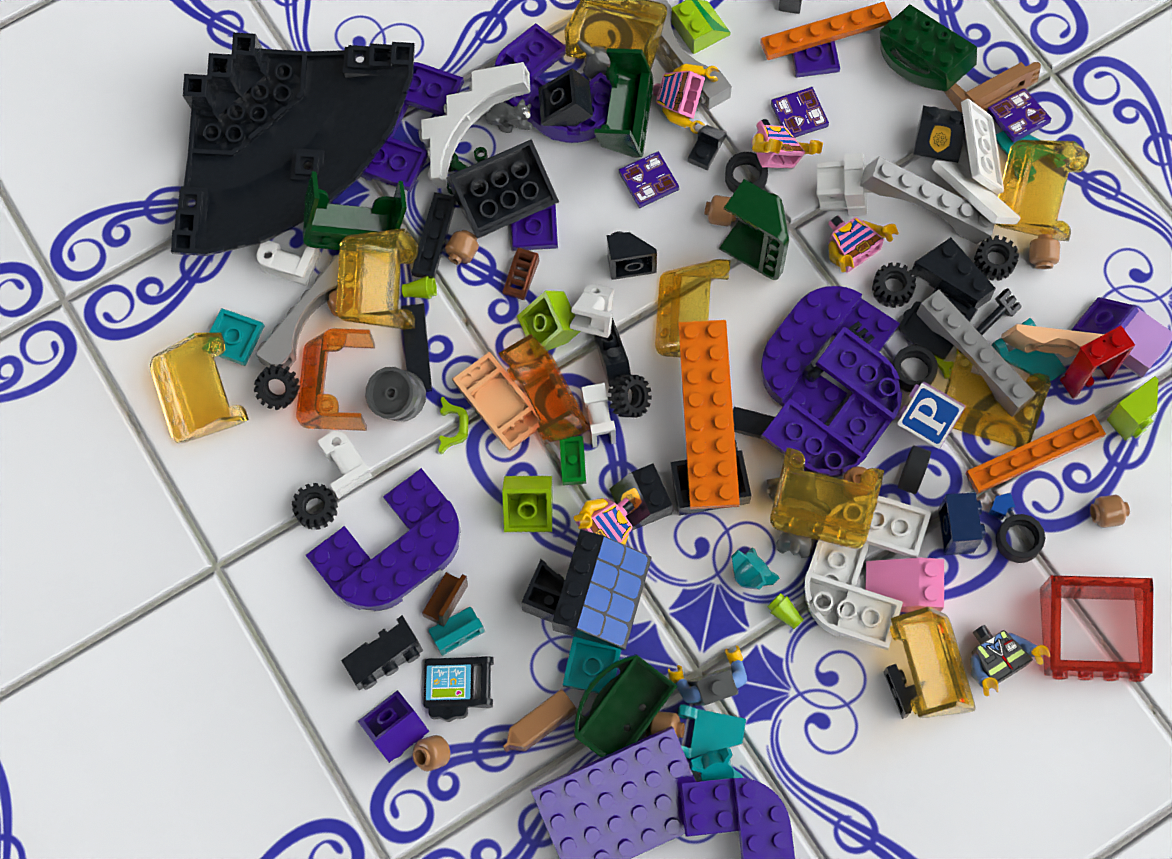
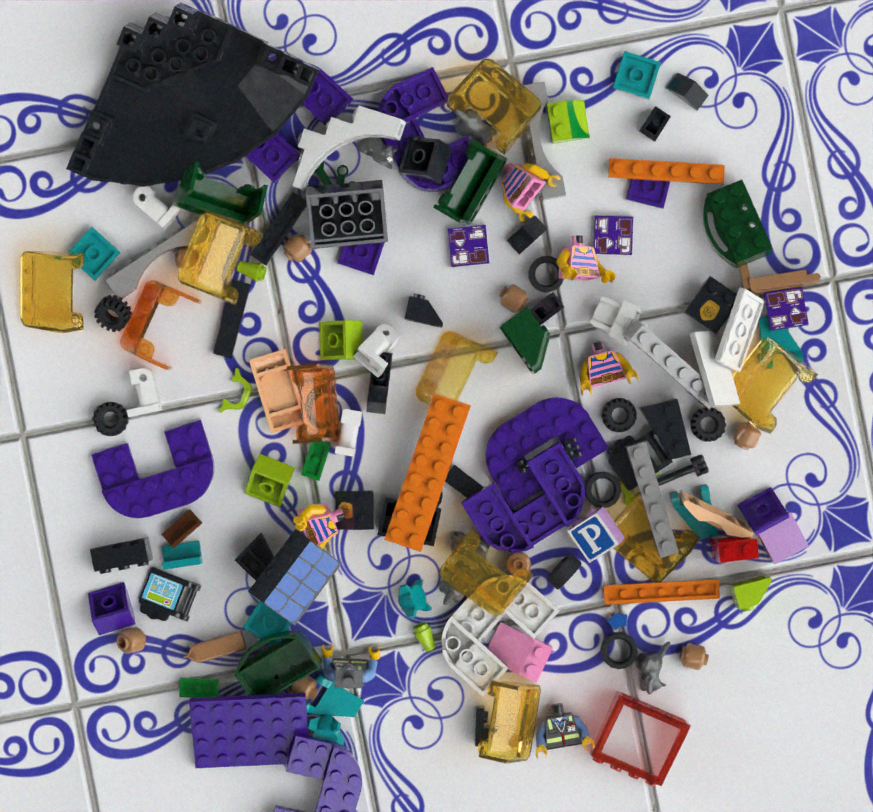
camera: 15 degrees right, 20 degrees up
(395, 394) = (201, 357): dark grey wheel -> none
(525, 781) = (198, 687): none -> green plate
(530, 262) = (347, 278): copper slope -> none
(619, 396) = (372, 422): black tyre -> none
(961, 523) = (578, 626): dark blue brick -> none
(1068, 542) = (651, 665): none -> dark grey animal

